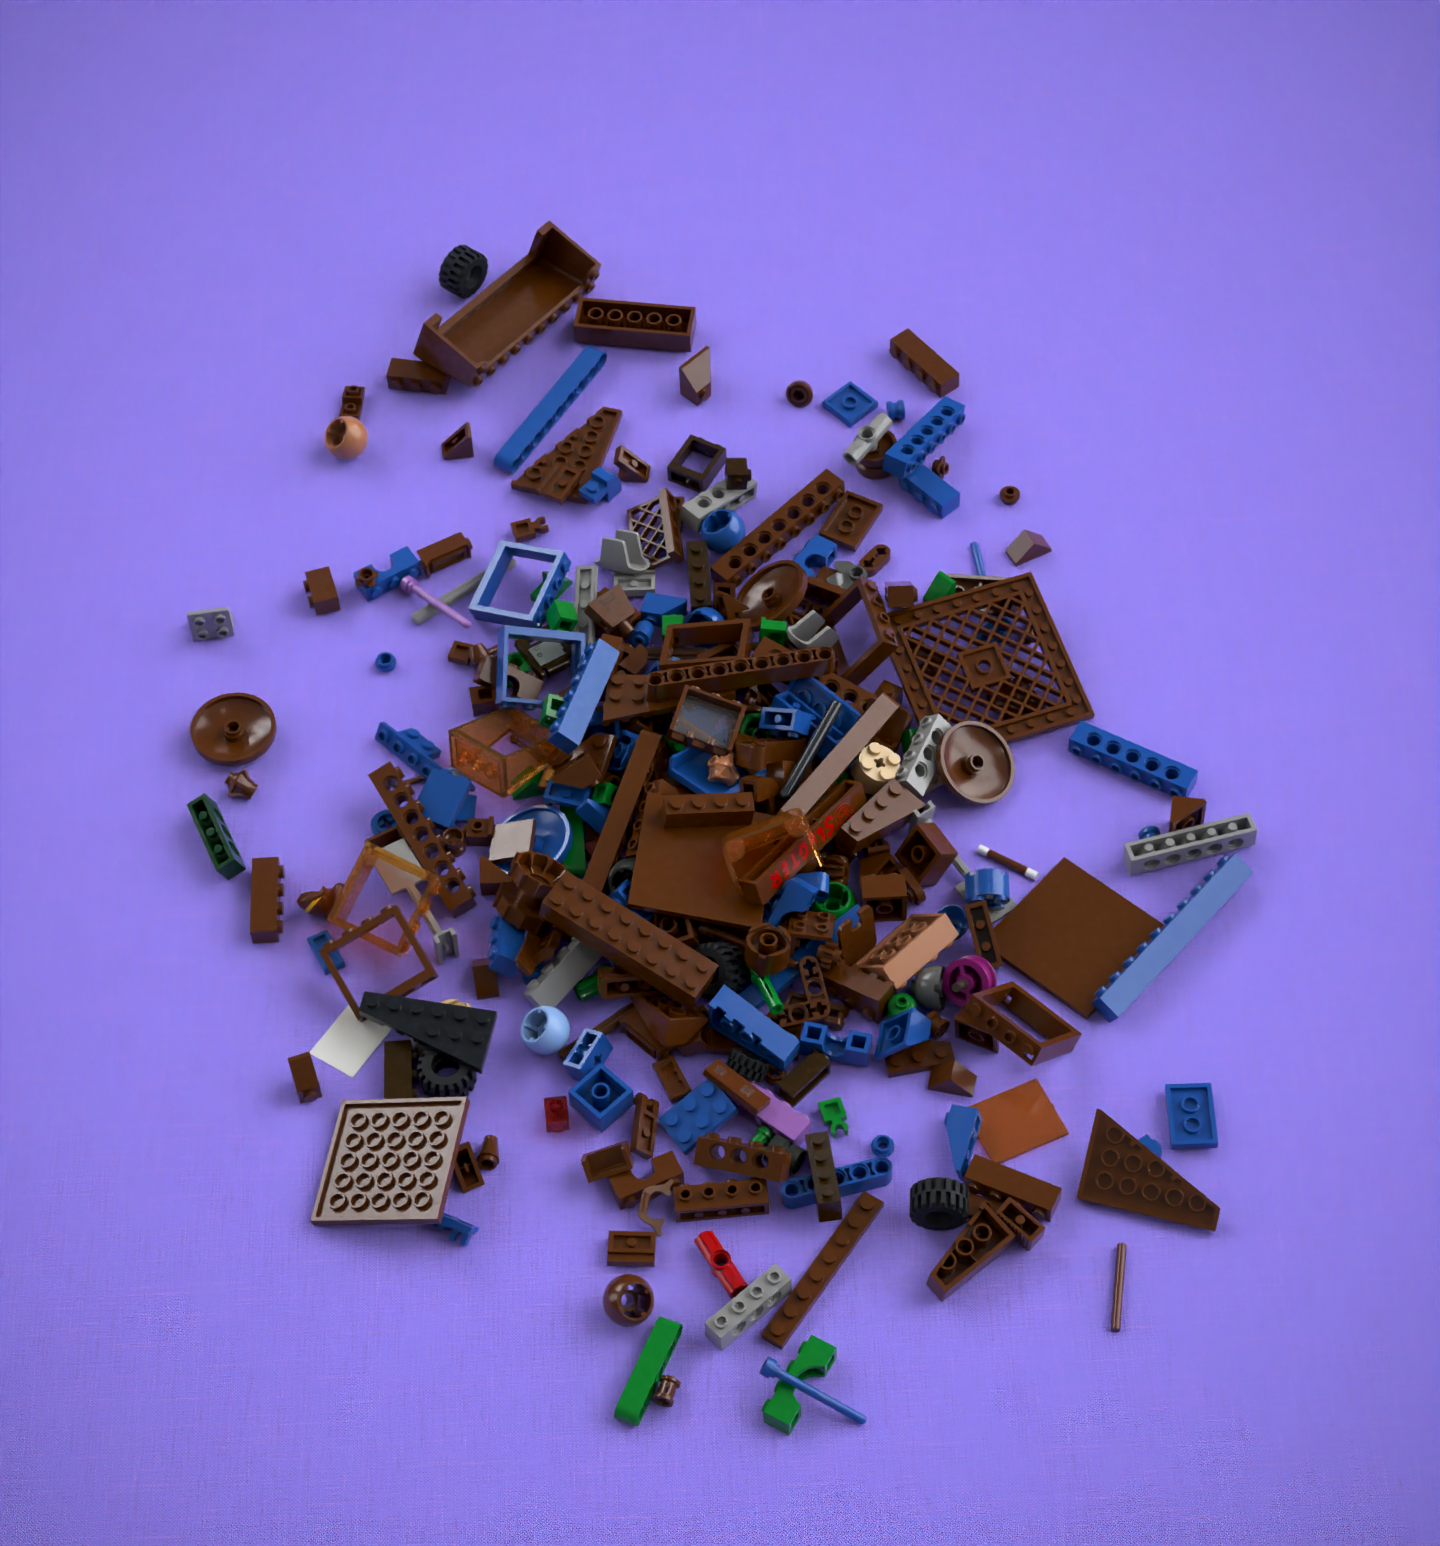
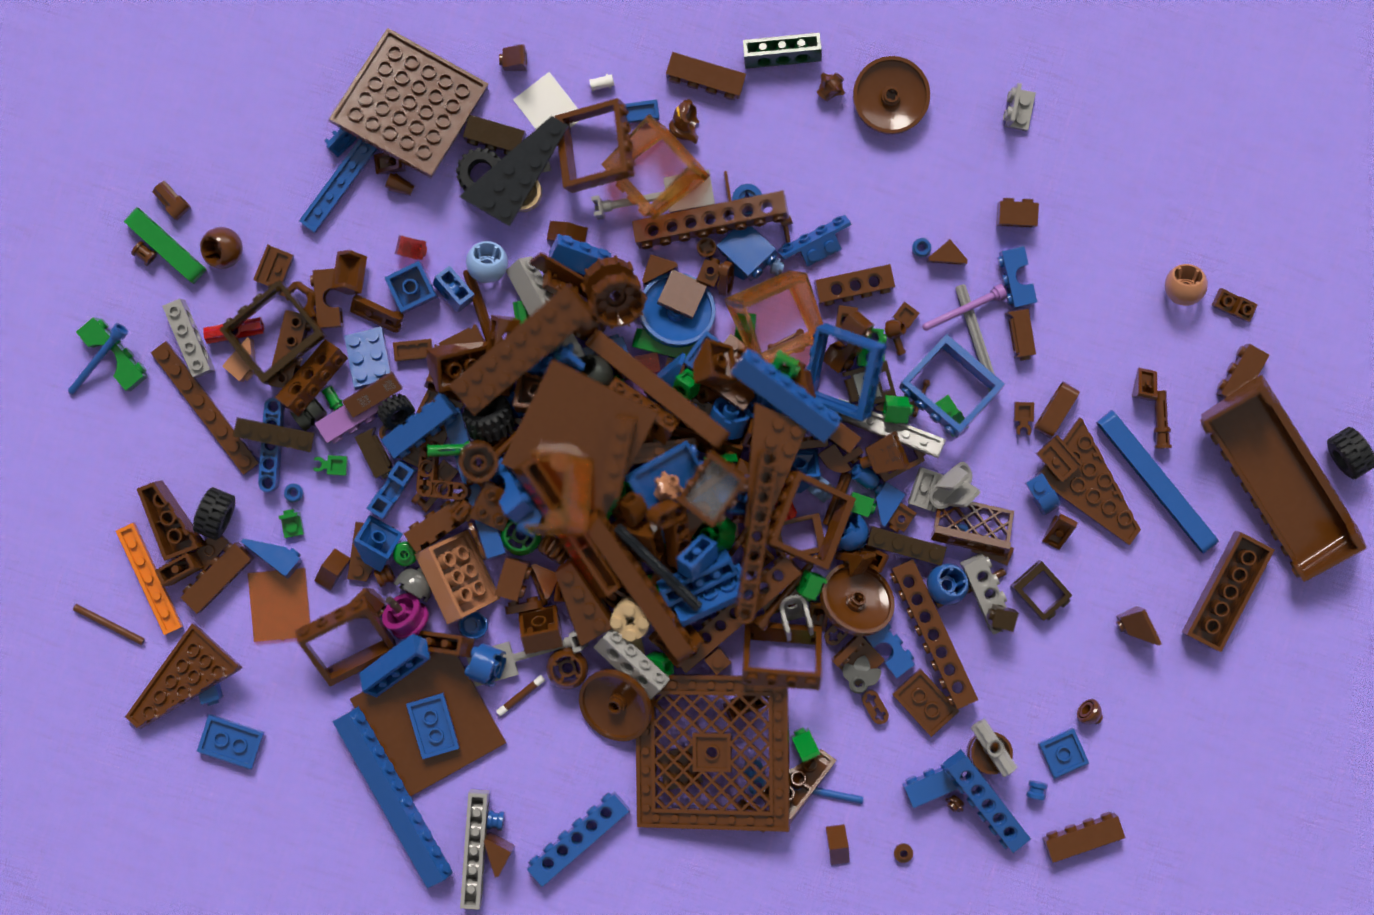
camera: 110 degrees right, 35 degrees up
(302, 990) = (602, 82): none -> white pin
(366, 577) = (1016, 253): reddish brown plate -> none
(383, 637) = (948, 254): none -> reddish brown slope
(442, 698) = (882, 273): none -> reddish brown brick
(479, 809) = (726, 278): none -> reddish brown plate
(496, 420) = (1162, 430): none -> reddish brown pin
(509, 1213) = (337, 185): none -> blue plate
(510, 504) = (1056, 409): none -> reddish brown beam
(595, 1376) = (173, 203): none -> reddish brown piece
(672, 589) = (908, 515): none -> reddish brown brick
(720, 1173) = (290, 358): none -> dark brown window
(752, 1243) = (237, 366): none -> nougat slope
(900, 594) = (809, 709): reddish brown brick -> none
(918, 1136) = (291, 523): none -> green bracket
(957, 819) = (580, 675): none -> reddish brown wheel
(1026, 968) = (394, 665): none -> blue brick
(1045, 1259) = (148, 579): none -> orange plate
(1077, 923) = (433, 725): none -> blue plate

